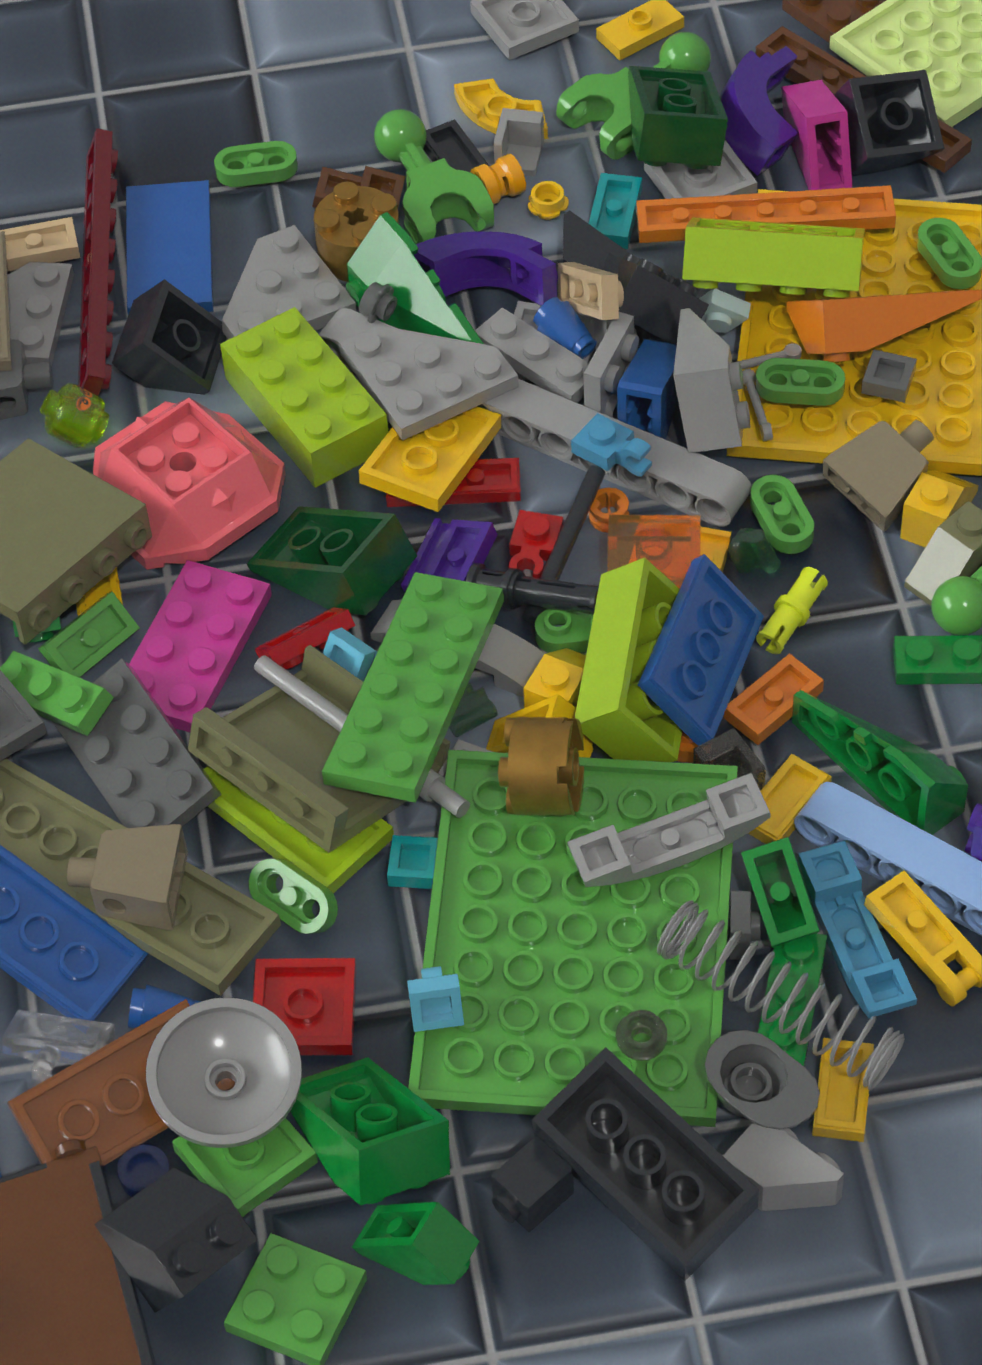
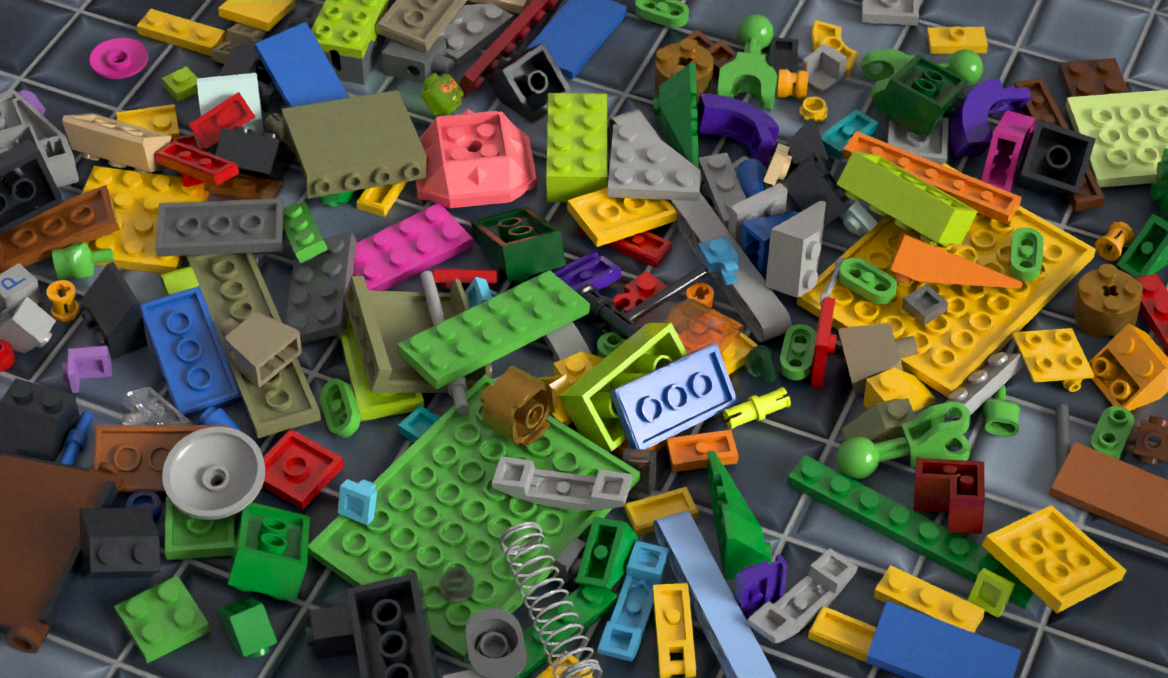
camera: 30 degrees right, 5 degrees down
(90, 636) = (350, 215): bright green plate -> none
(281, 276) = (625, 80): light grey plate -> none
(378, 302) = (656, 114): dark grey plate -> none
(472, 711) = (525, 360): clear green plate -> none
(790, 351) = (880, 263): light grey hinge -> none
(815, 484) = (824, 343): none -> red plate

